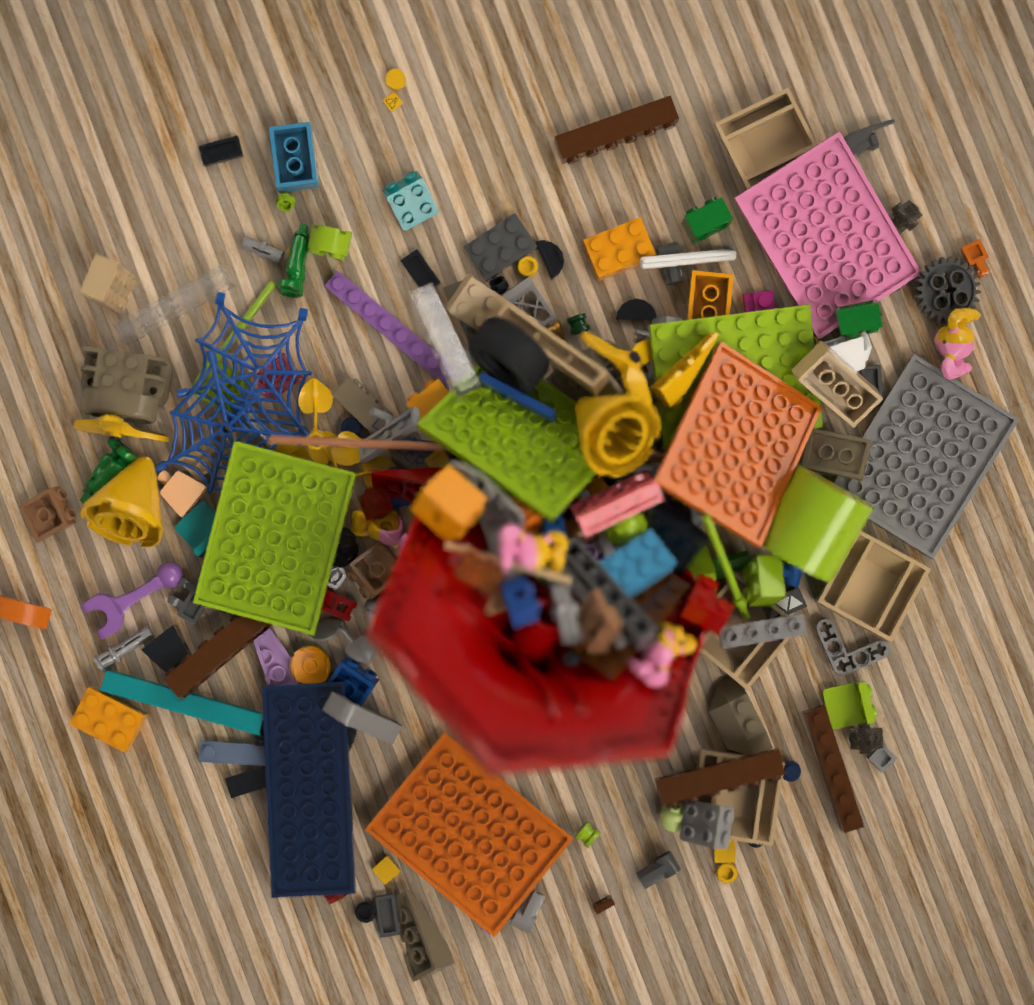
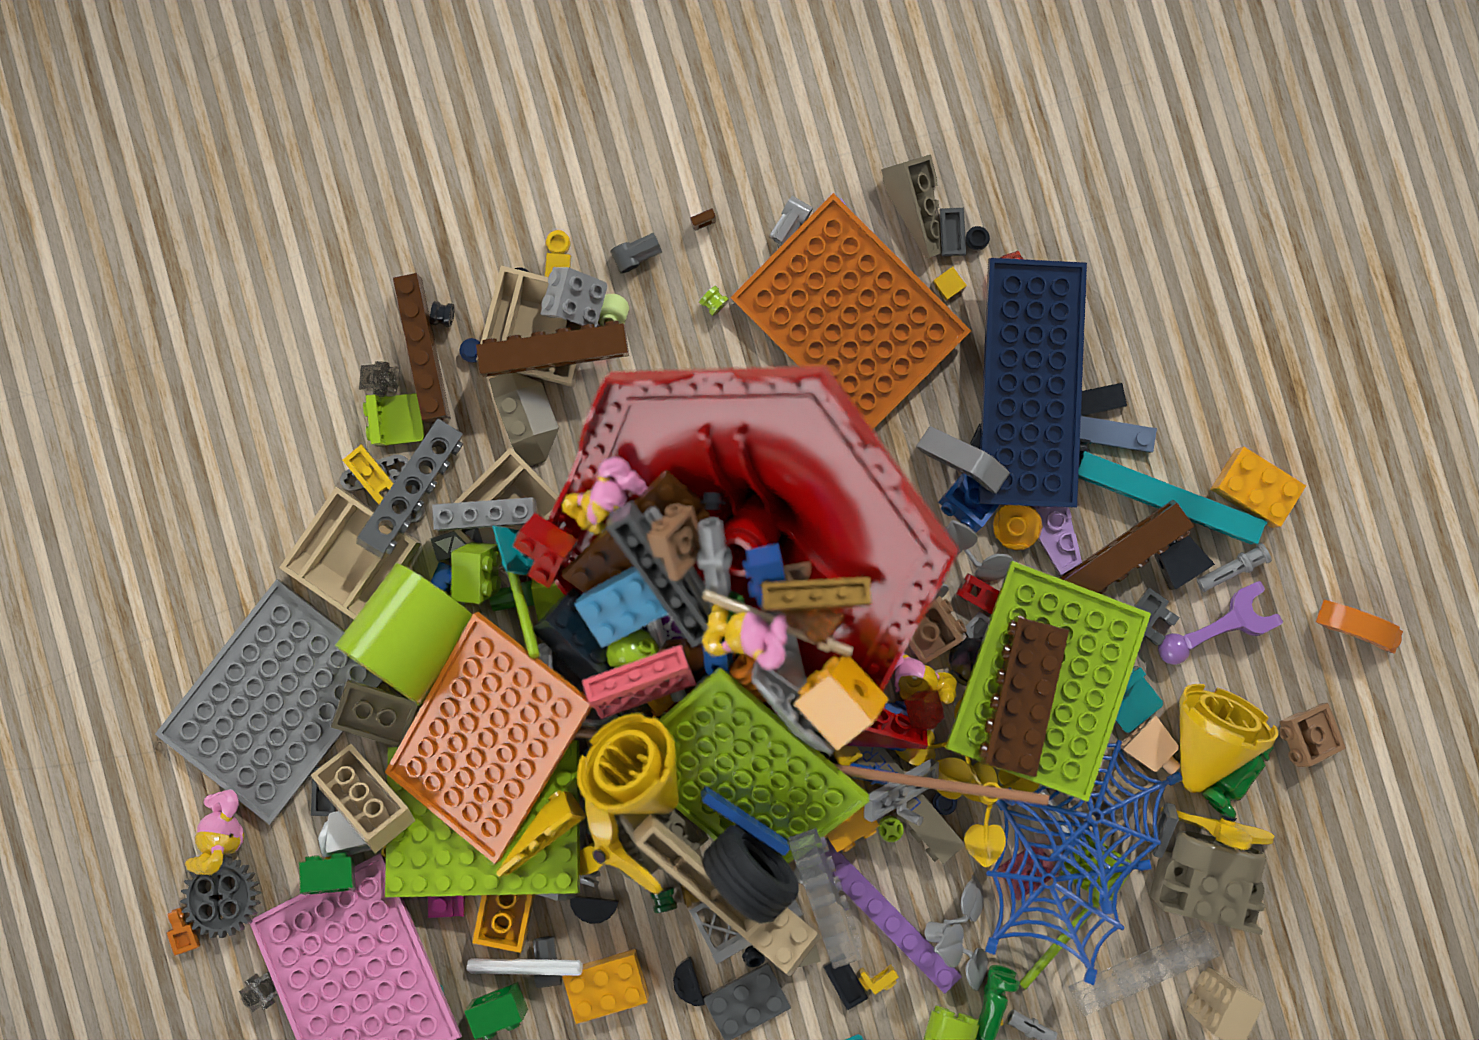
camera: 175 degrees left, 0 degrees up
(166, 424) = (1165, 828): none -> dark grey tile
(295, 523) = (1023, 696): none -> reddish brown bracket
(338, 318) = (951, 937): none -> light grey plant
(389, 276) = (883, 980): none -> yellow bracket
(392, 398) = (894, 831): none -> lime wheel
(478, 589) = (816, 594): none -> pearl gold plate
(527, 266) = (716, 975): yellow tile -> none
(733, 594) = (512, 558): none -> teal hinge
(807, 694) = (439, 435): none -> dark grey brick
(819, 800) = (442, 314): none -> black wheel
(861, 653) = (368, 472): none -> yellow plate
(882, 758) = (364, 354): light grey tile -> none

